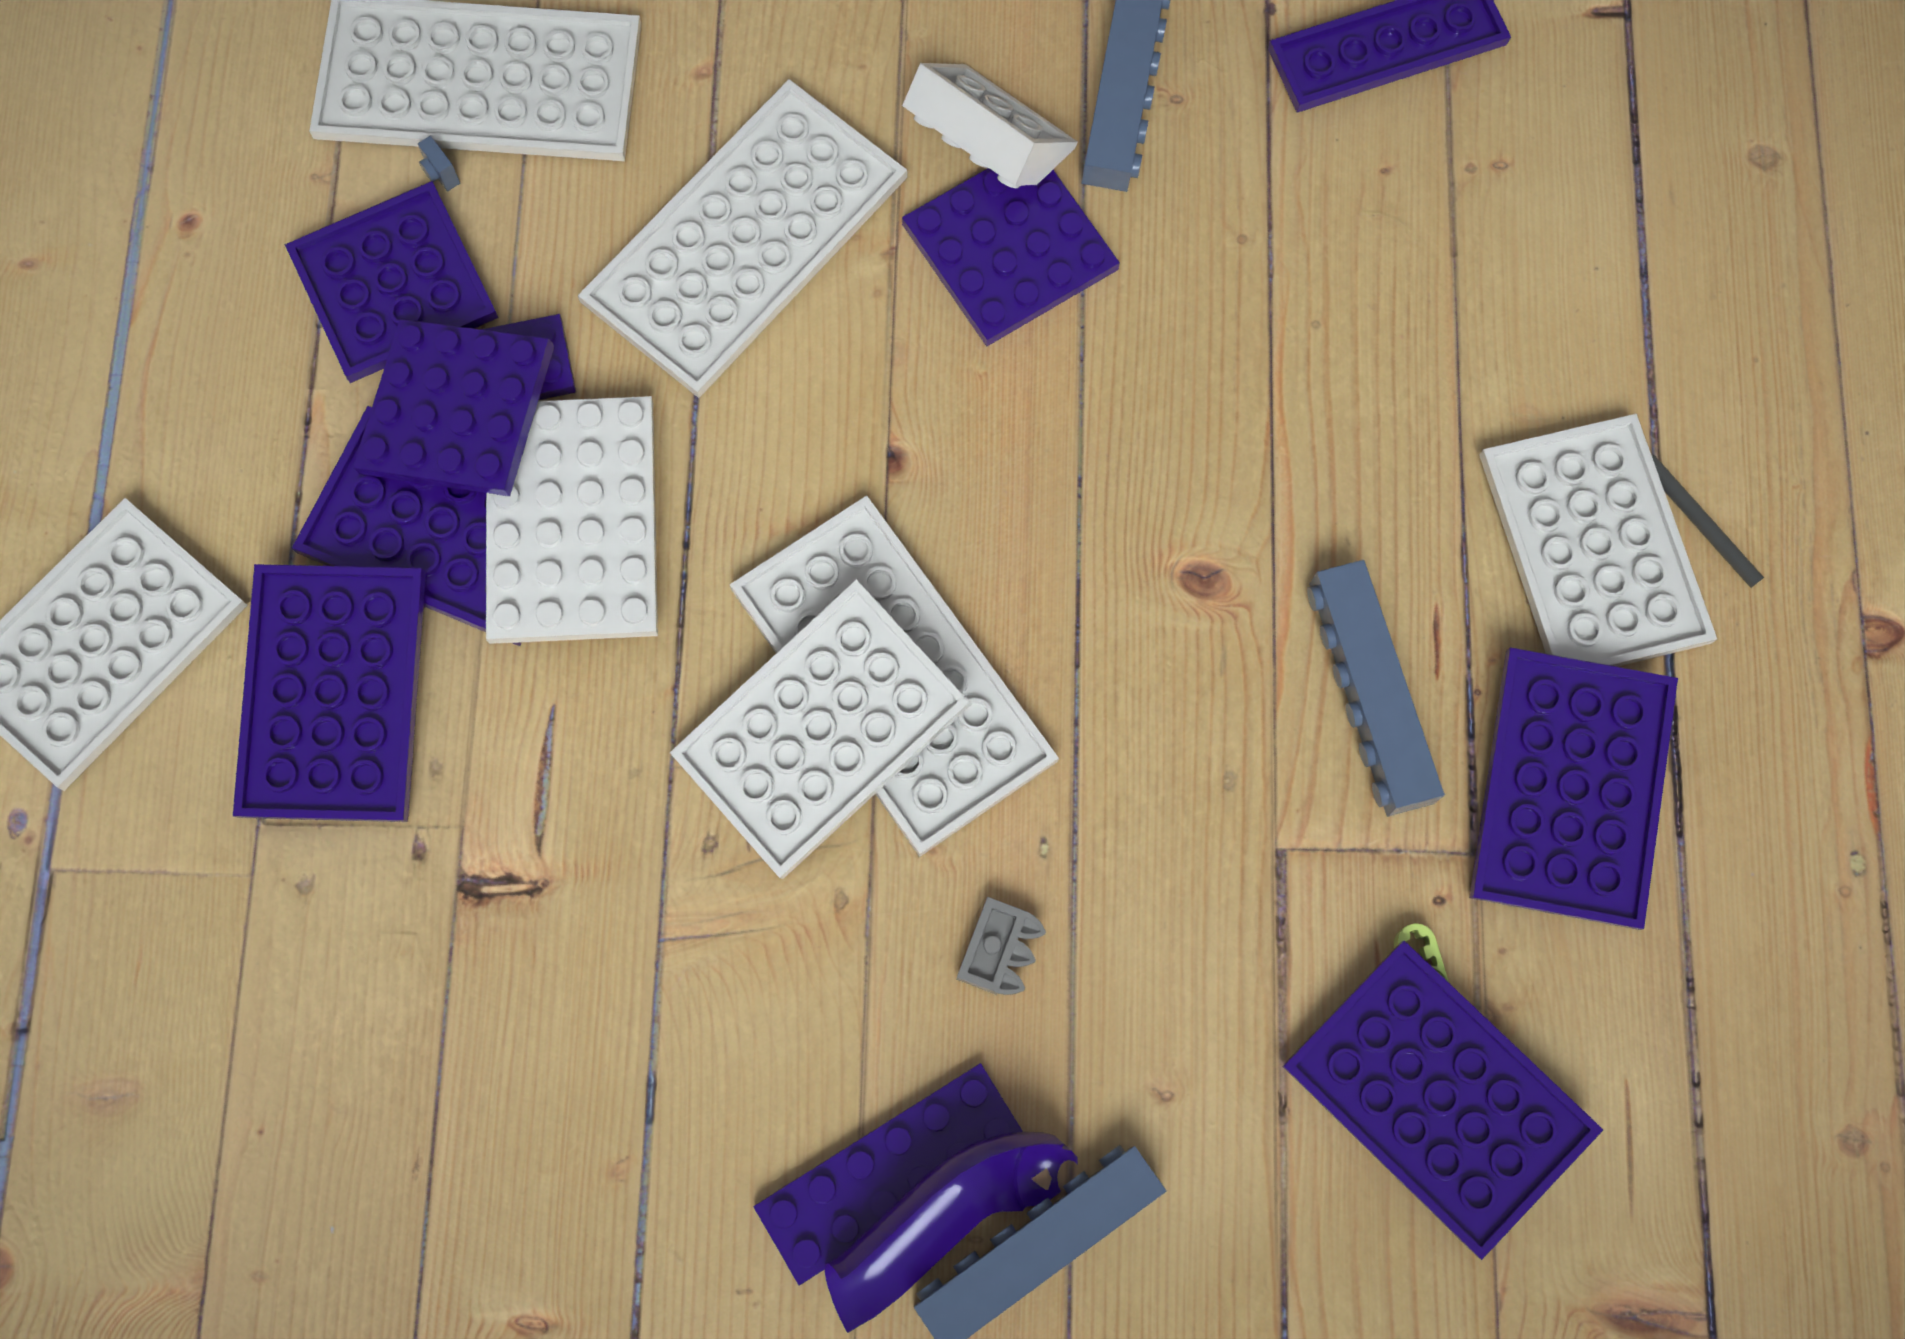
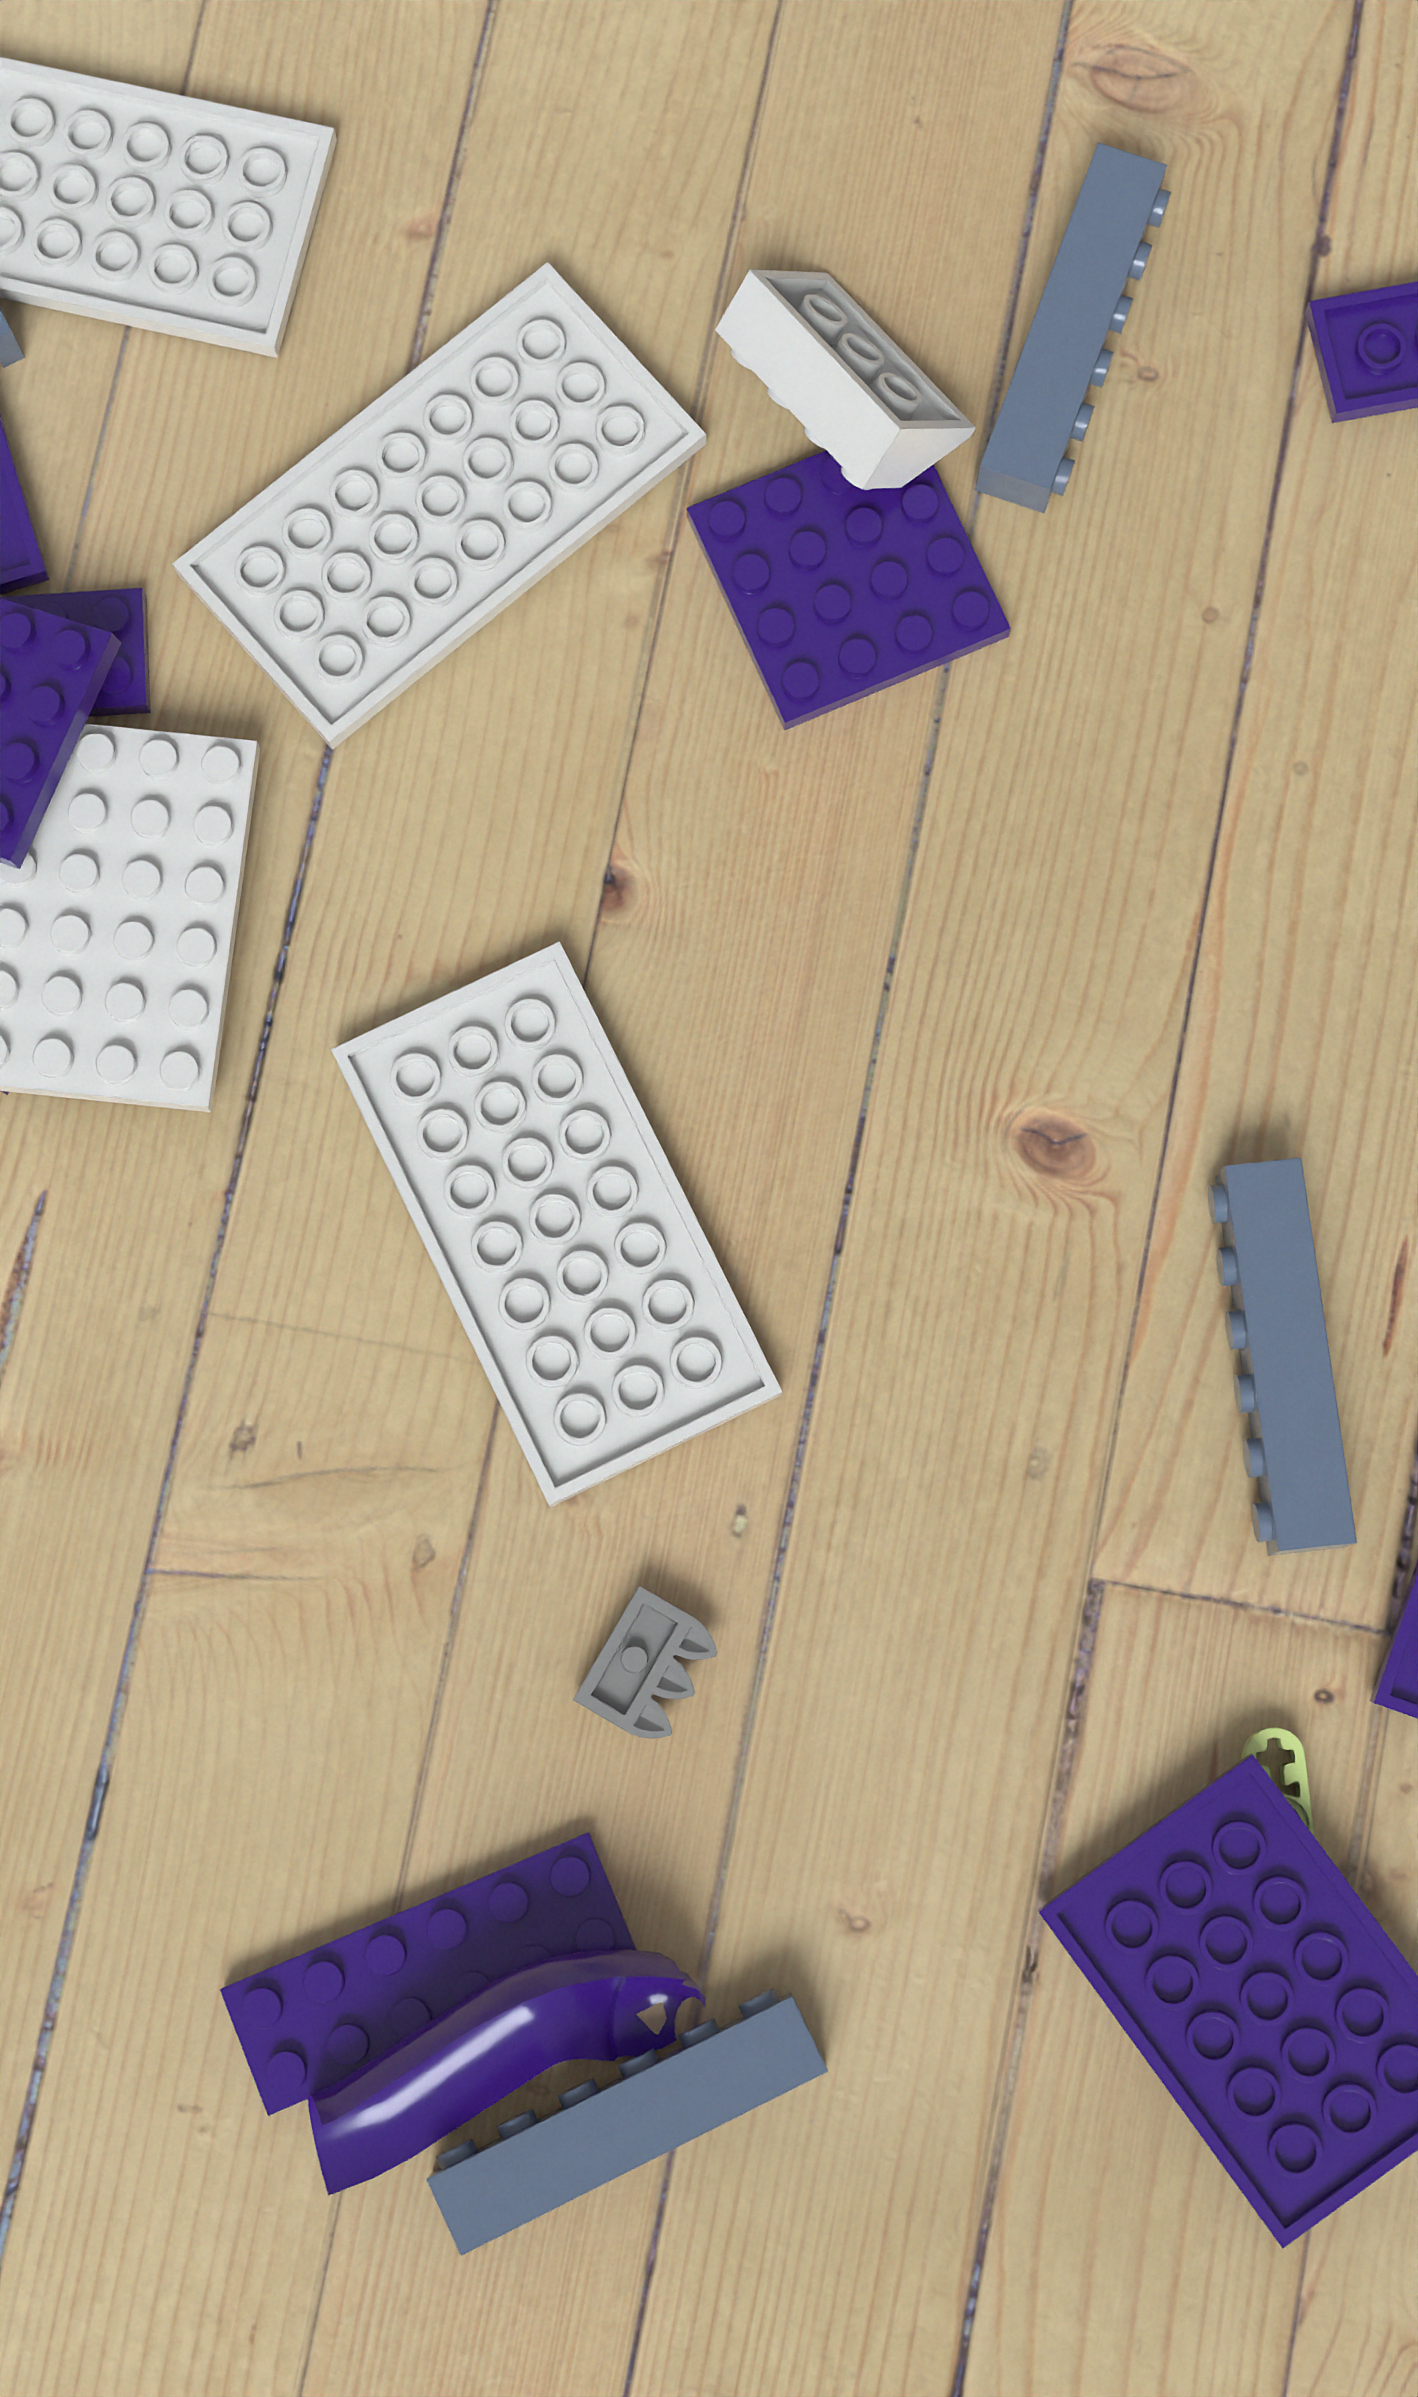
camera: 15 degrees right, 5 degrees up
(820, 729) = (430, 1293): white plate -> none

